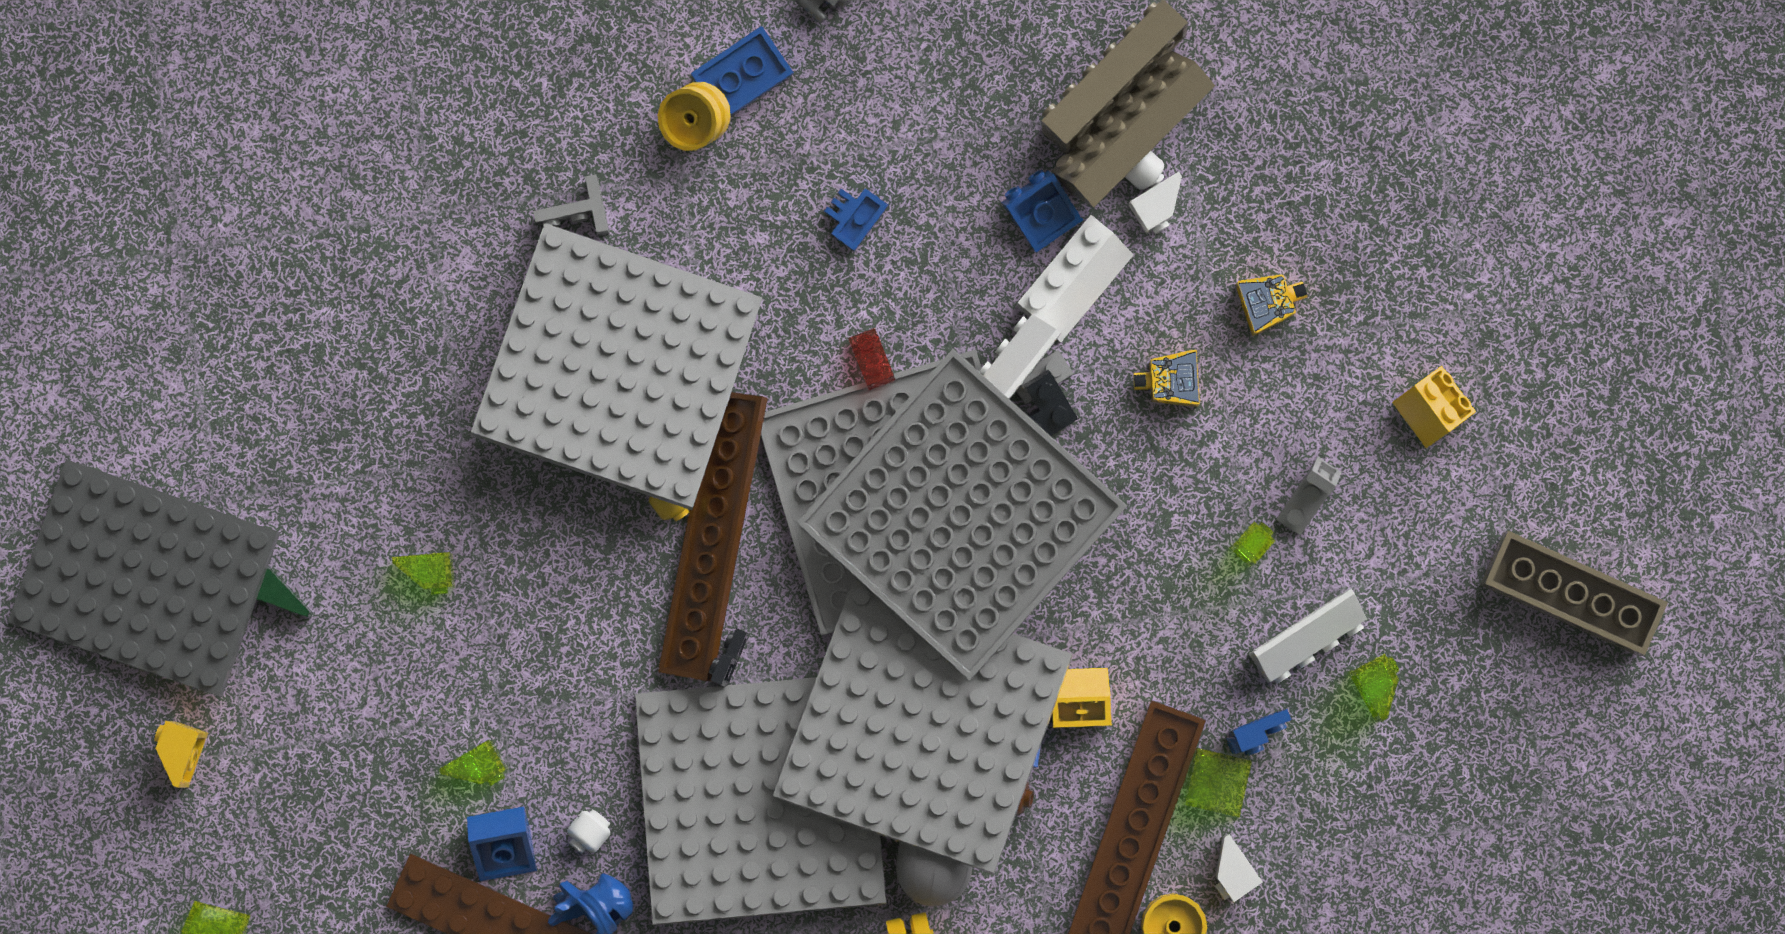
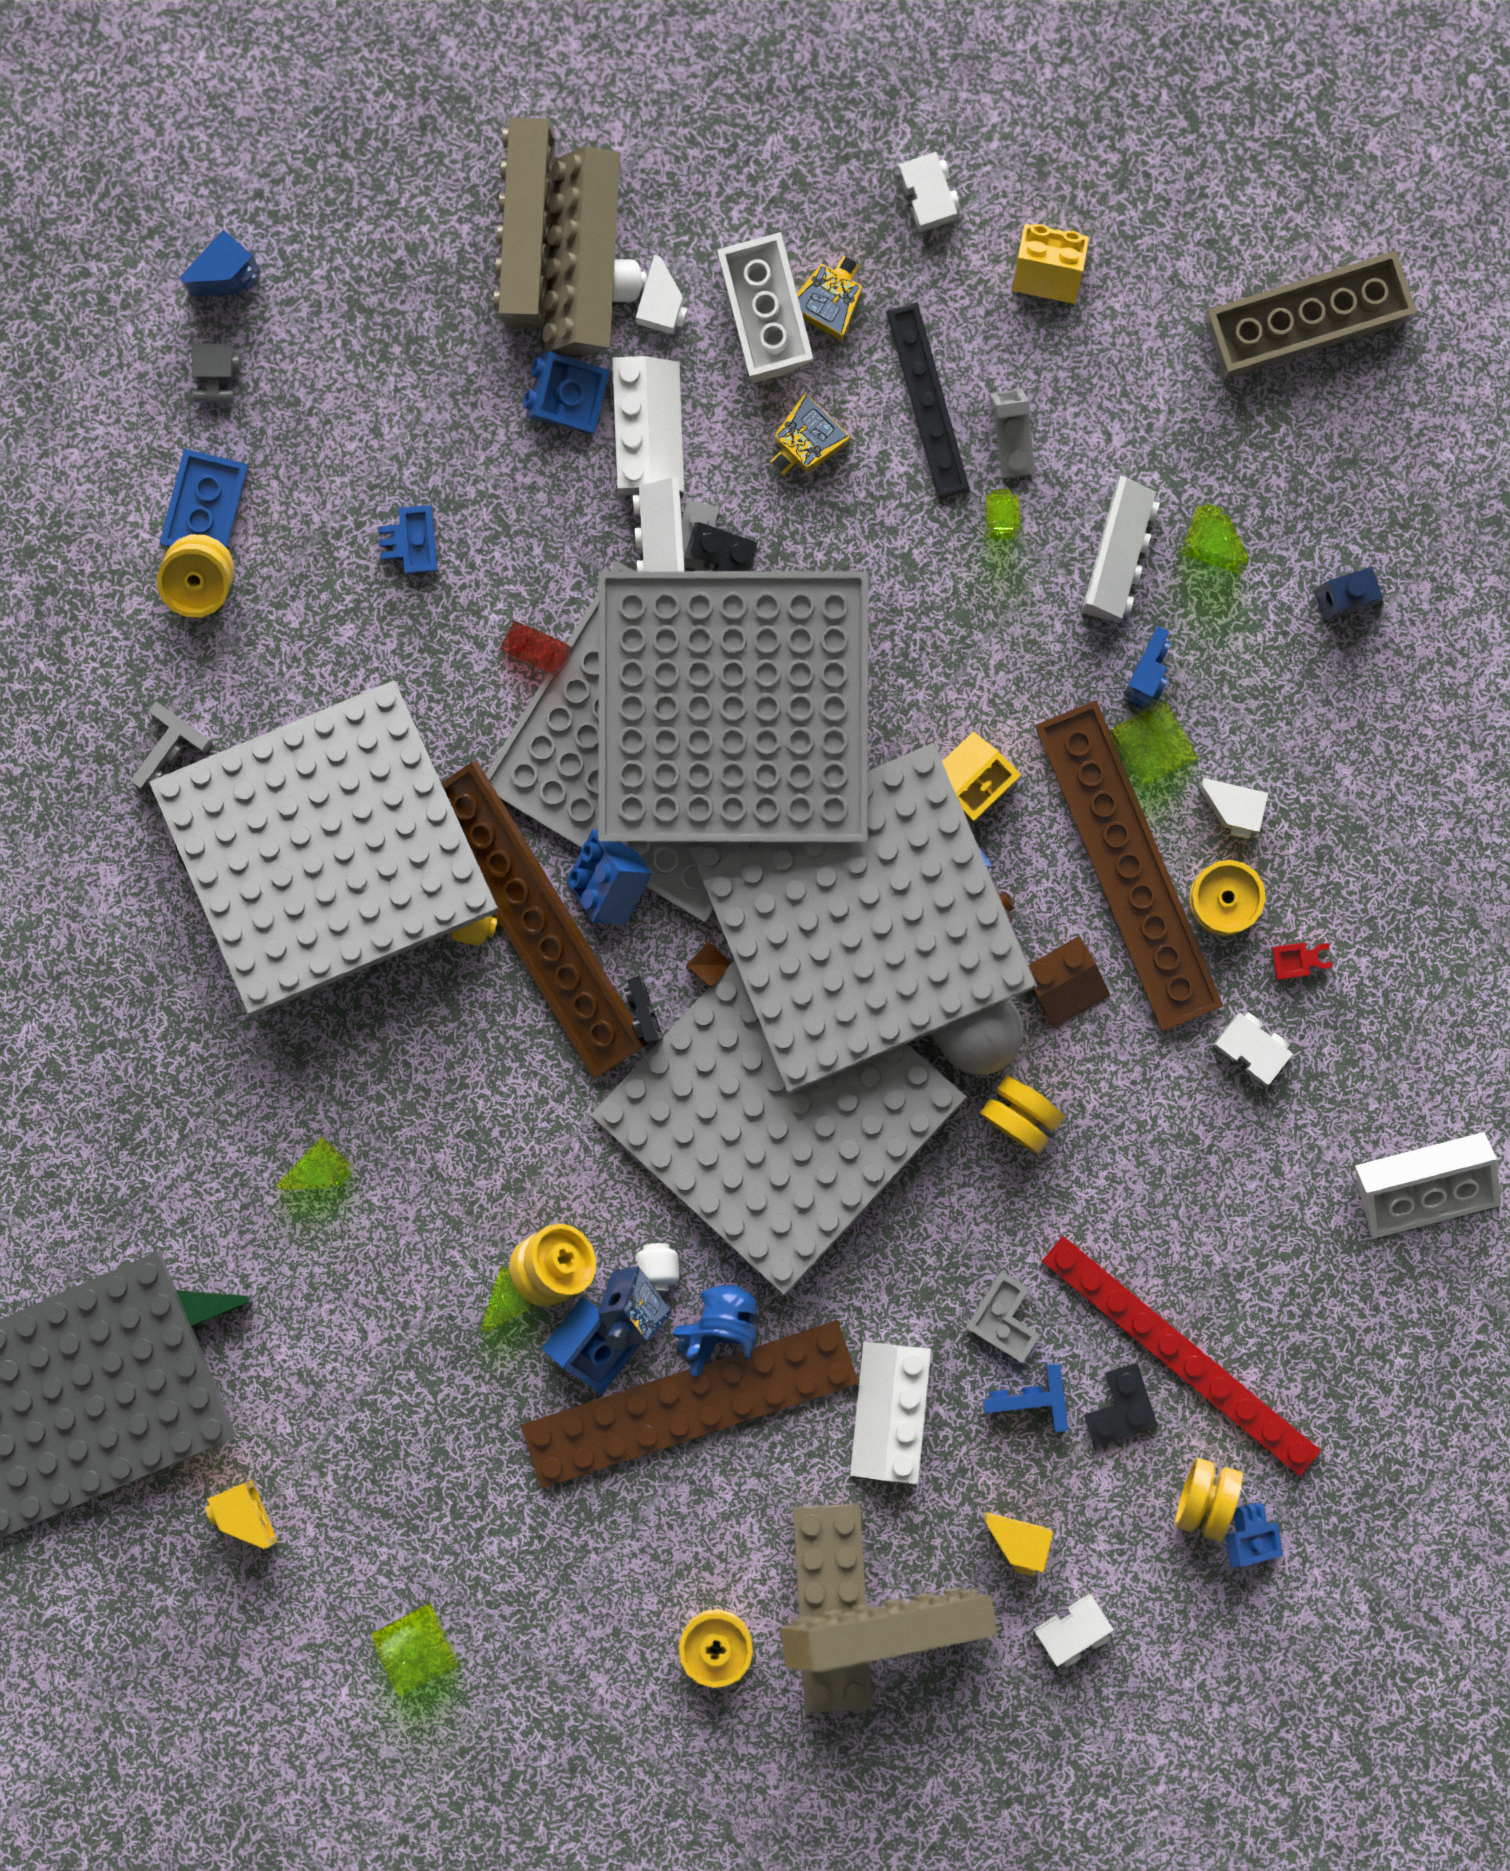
camera: 40 degrees left, 0 degrees up
(522, 770) = (553, 1265): none -> yellow wheel
(546, 844) = (631, 1308): none -> dark blue torso
(782, 552) = (608, 880): none -> blue slope
(799, 665) = (709, 964): none -> reddish brown slope
(1020, 886) = (1067, 982): none -> reddish brown slope
(1220, 270) = (765, 307): none -> white slope
(1273, 425) = (927, 400): none -> black tile
(1400, 283) = (932, 200): none -> white brick
(1434, 799) = (1348, 594): none -> dark blue torso

